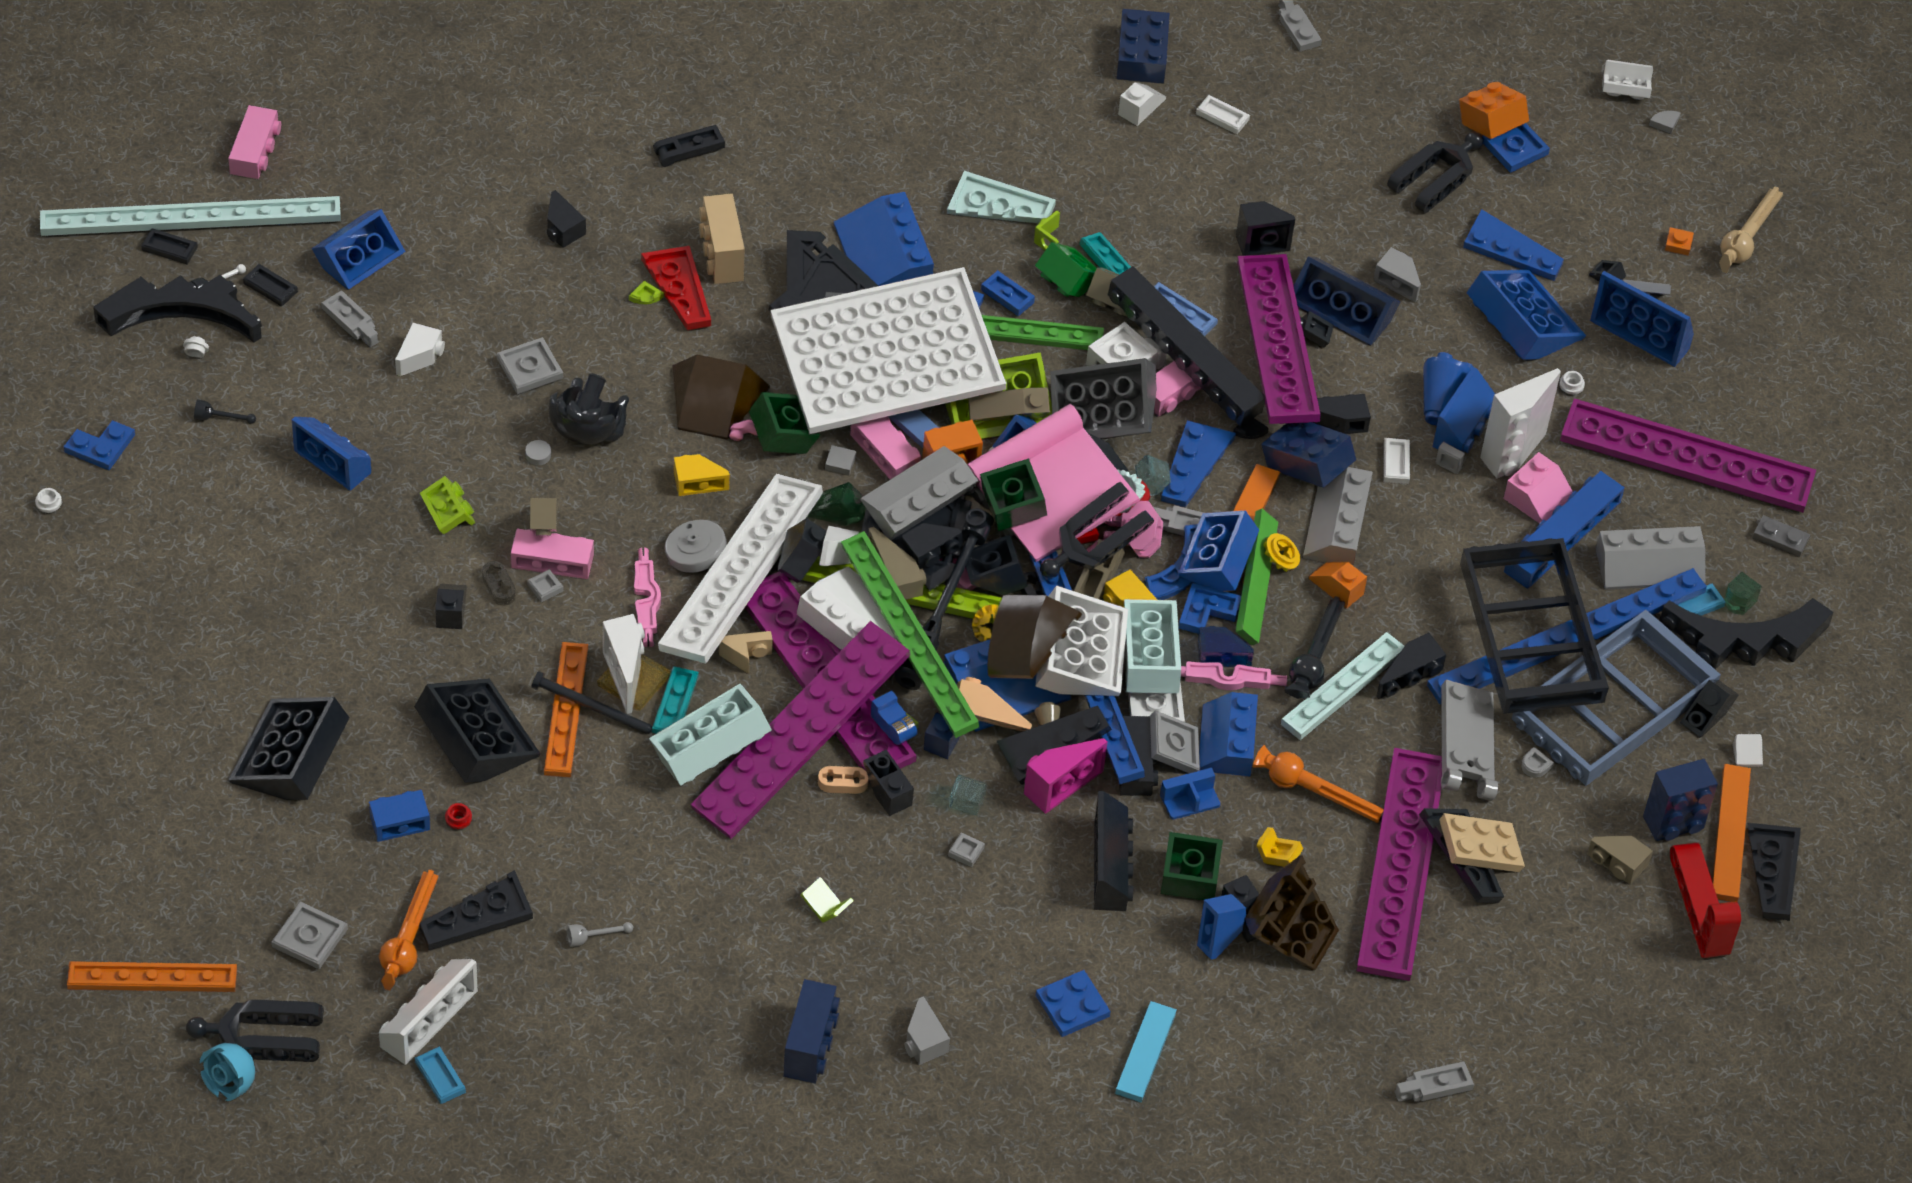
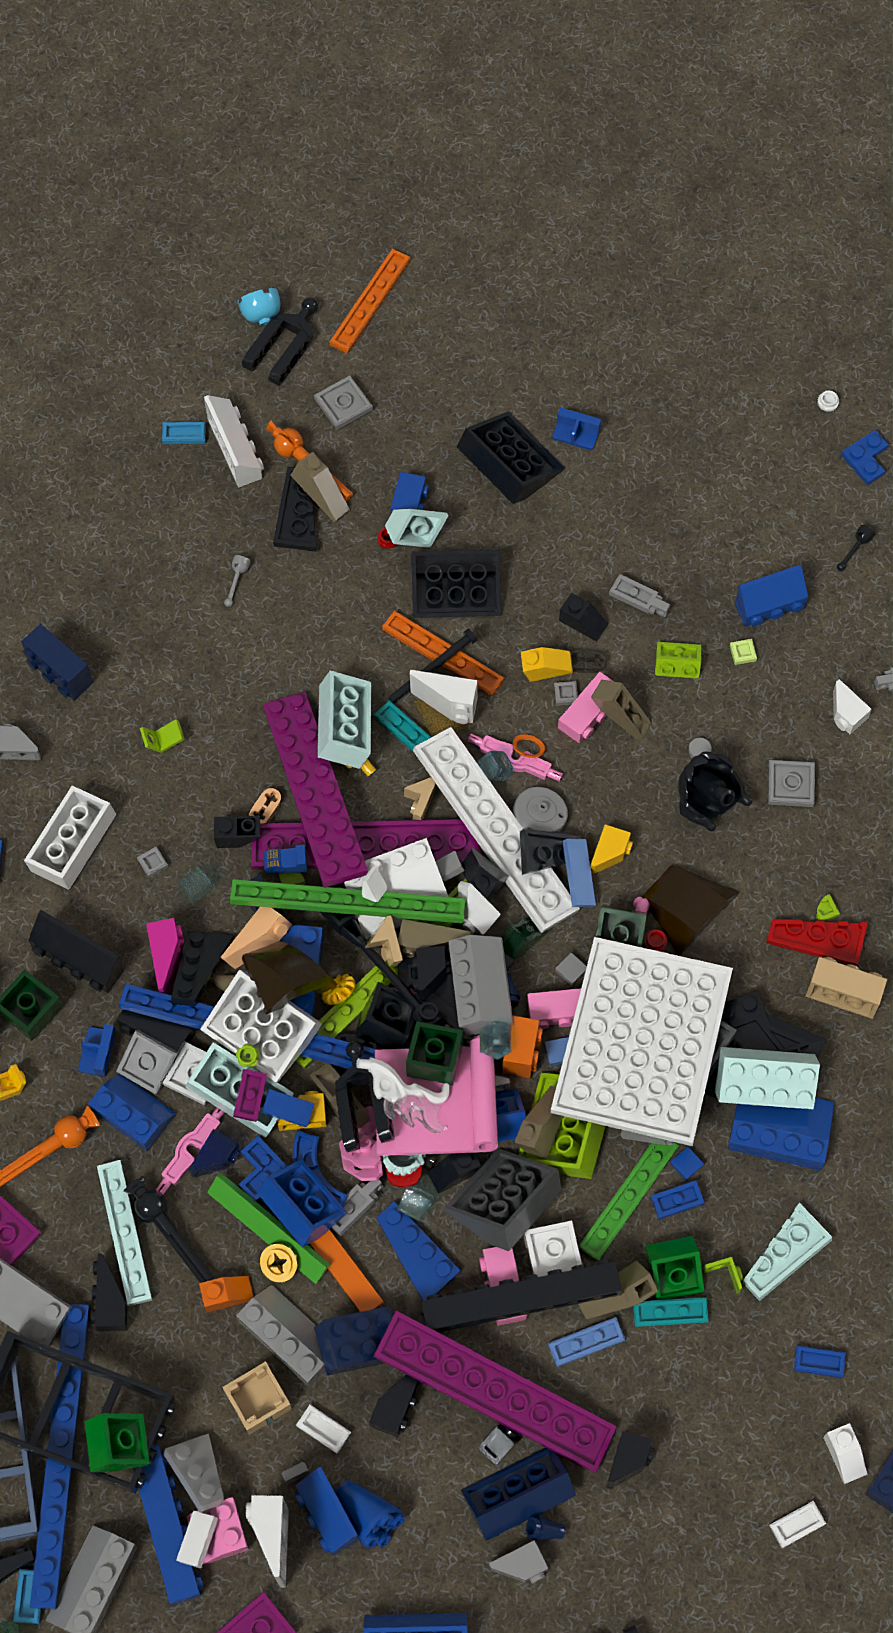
camera: 125 degrees right, 15 degrees up
(218, 705) = (576, 429): none -> blue panel
(394, 568) = (638, 596): none -> light grey hinge
(403, 460) = (743, 651): none -> yellowish green tile
(437, 897) = (320, 486): none -> dark tan slope
(439, 782) = (415, 527): none -> light aqua slope
(528, 606) = (545, 663): none -> yellow slope
(622, 578) = (529, 737): none -> orange piece
(672, 598) = (496, 765): none -> clear light blue piece
(736, 515) = (542, 849): none -> black wing
(742, 484) = (579, 873): none -> medium blue tile
(804, 581) = (449, 866): none -> light grey tile
(854, 250) = (767, 1078): none -> light aqua brick
(883, 612) = (373, 885): none -> white slope
(926, 591) = (386, 936): none -> tan slope
(970, 448) = (495, 1039): none -> clear light blue piece
(994, 922) = (70, 837): none -> white brick
(1075, 490) = (407, 1100): none -> piece
(1076, 148) = (819, 1361): none -> blue tile
(1122, 633) = (247, 1049): none -> lime plate
(1143, 593) = (287, 1108): none -> blue tile
(1157, 618) = (249, 1095): none -> magenta plate
(1361, 268) = (544, 1529): none -> dark blue cone
(1410, 512) = (257, 1398): none -> tan container
(1507, 515) = (197, 1471): none -> light grey wing
(1538, 560) = (116, 1442): none -> green slope
(1561, 484) = (197, 1539): none -> white tile

